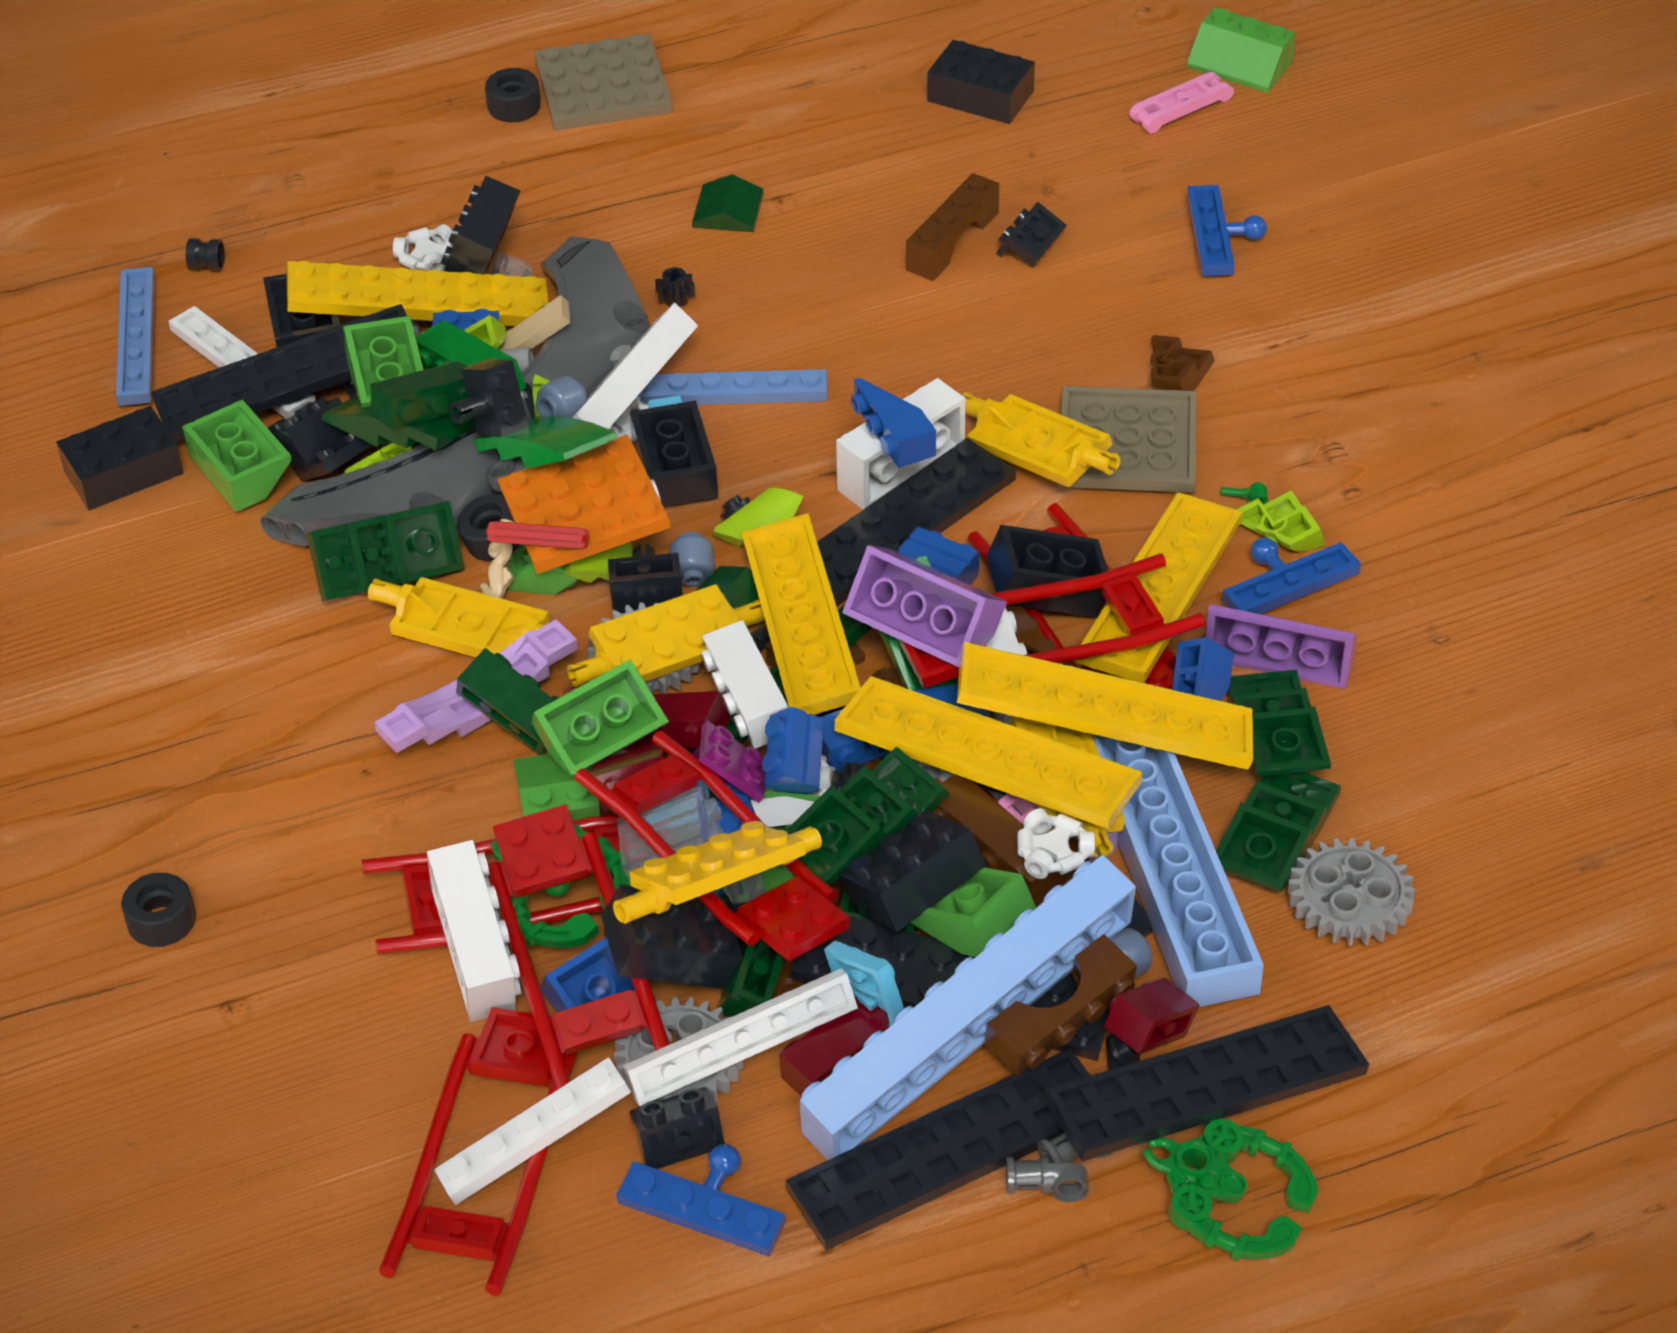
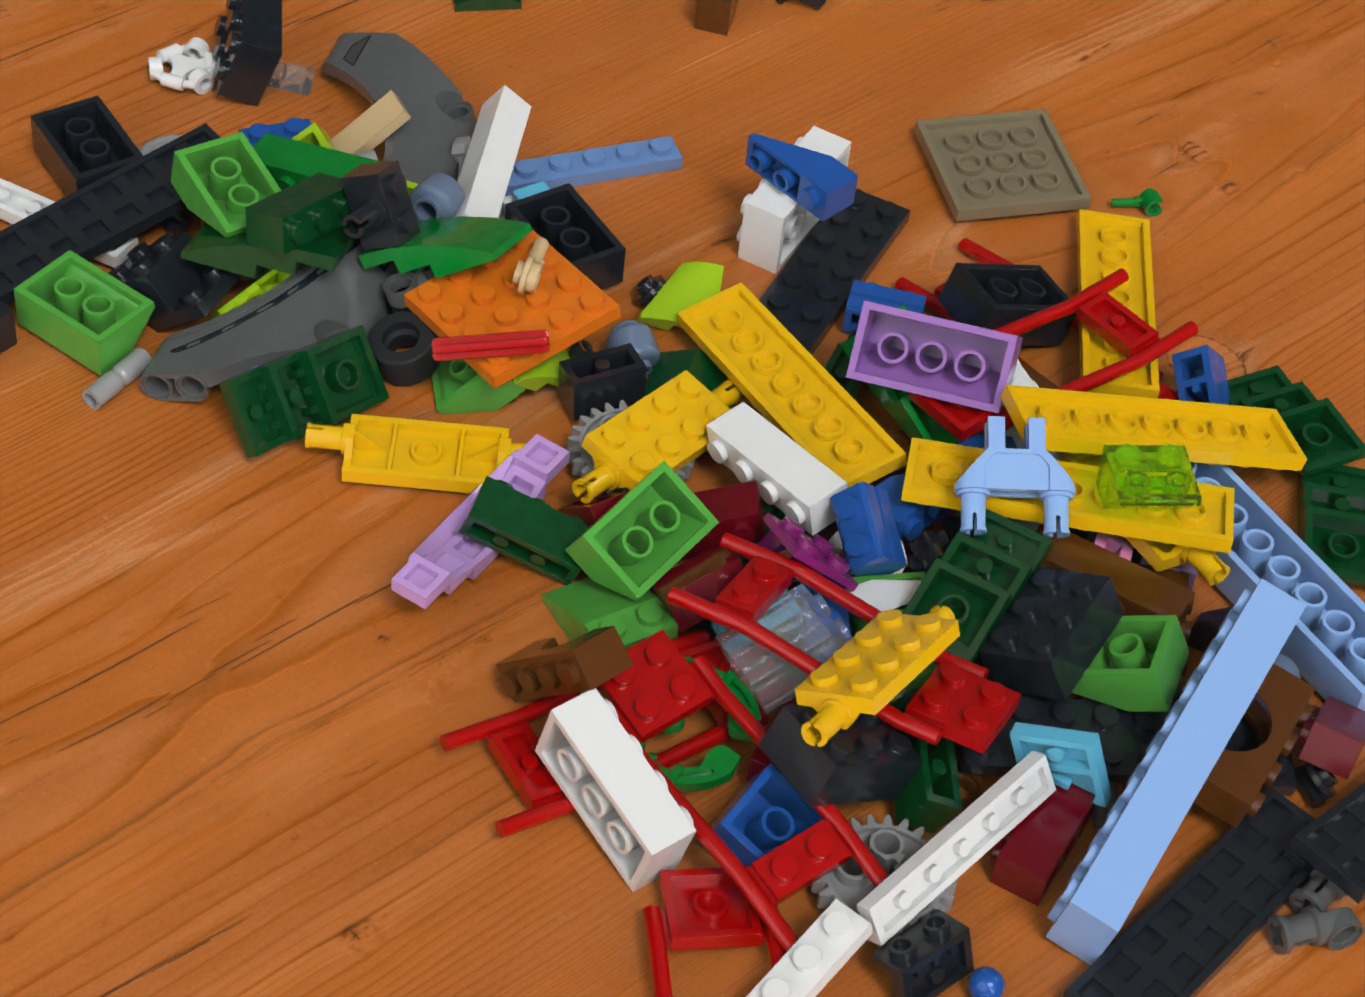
camera: 25 degrees left, 0 degrees up
(164, 926) = (233, 859): black tyre -> none
(243, 517) = (113, 381): none -> light grey piece
(370, 289) = (167, 113): yellow plate -> none
(472, 818) = (562, 669): none -> reddish brown arch
(499, 575) = (433, 372): tan animal -> none
(599, 474) = (529, 272): none -> tan plate
(675, 287) = (475, 72): black gear -> none
(926, 722) = (1015, 474): none -> light blue connector
(1039, 439) = (932, 176): yellow plate -> none
(1043, 848) = (1183, 581): white piece -> none
(1046, 746) = (1147, 478): none -> clear neon green slope
(1177, 366) = (1008, 89): reddish brown slope -> none
(1282, 644) = (1263, 341): medium lavender slope -> none
(1283, 522) = (1190, 224): lime slope -> none
(1289, 580) = (1222, 281): blue plate -> none

